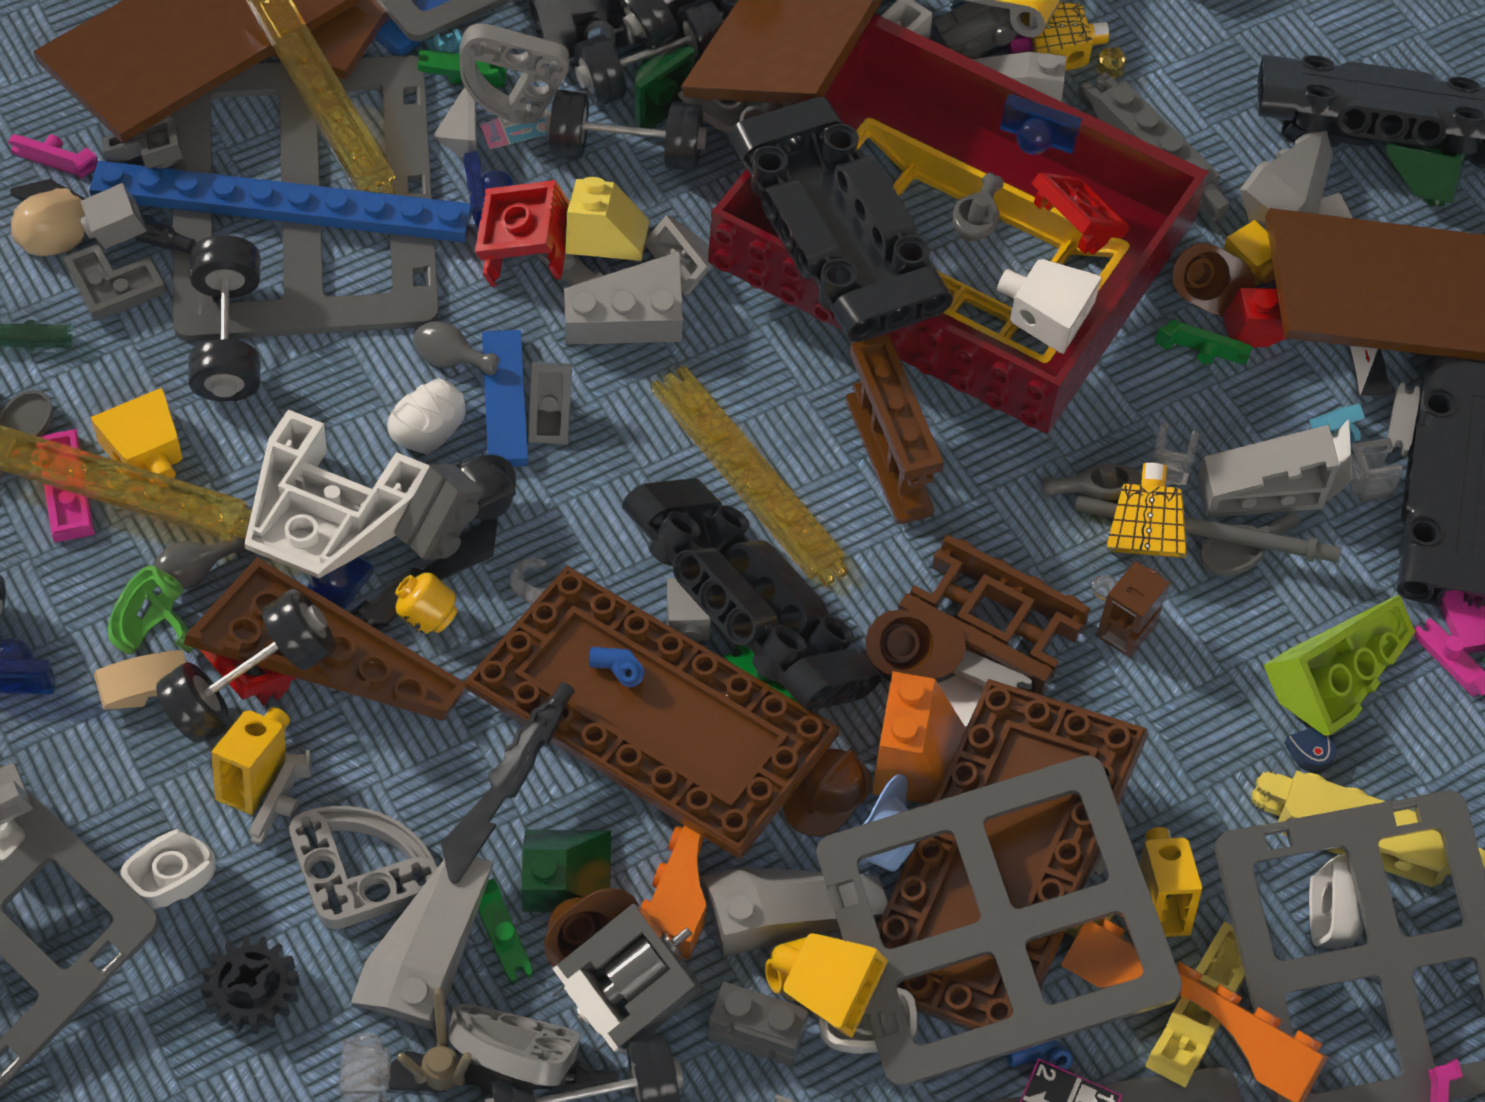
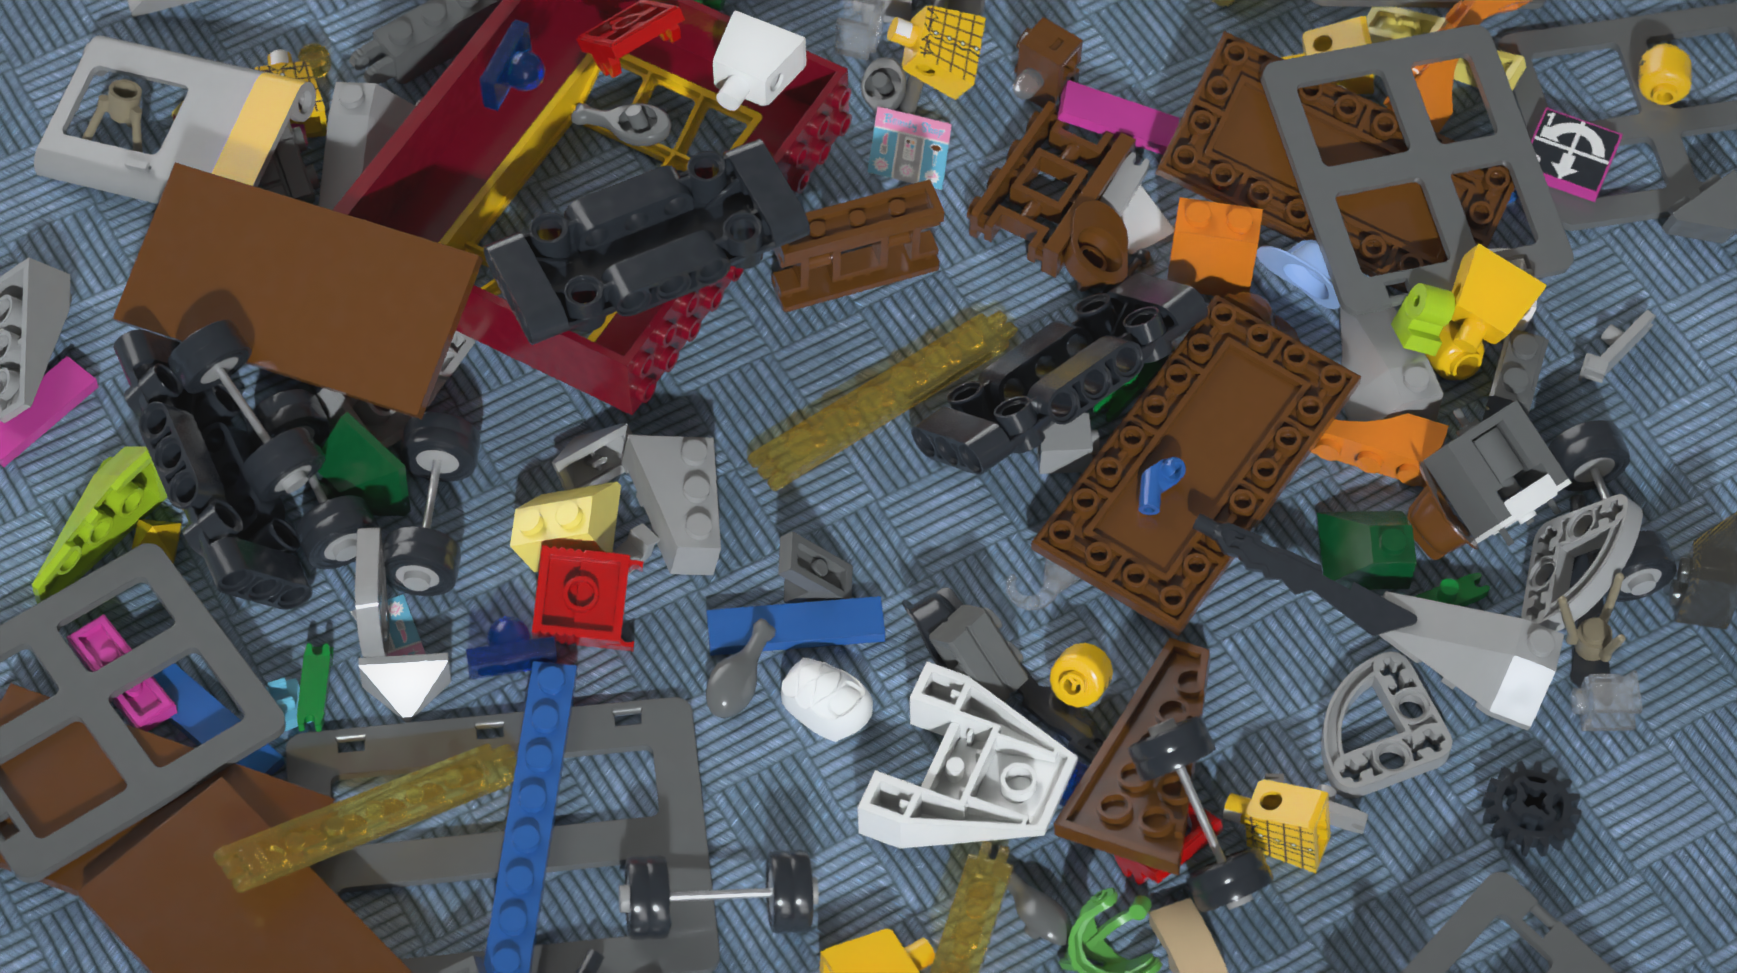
camera: 90 degrees left, 0 degrees up
(169, 869) = (1424, 883): white piece -> none
(807, 915) = (1423, 318): none -> lime leg
(1038, 502) = (909, 147): none -> sticker
(1081, 660) = (1106, 112): none -> dark pink tile

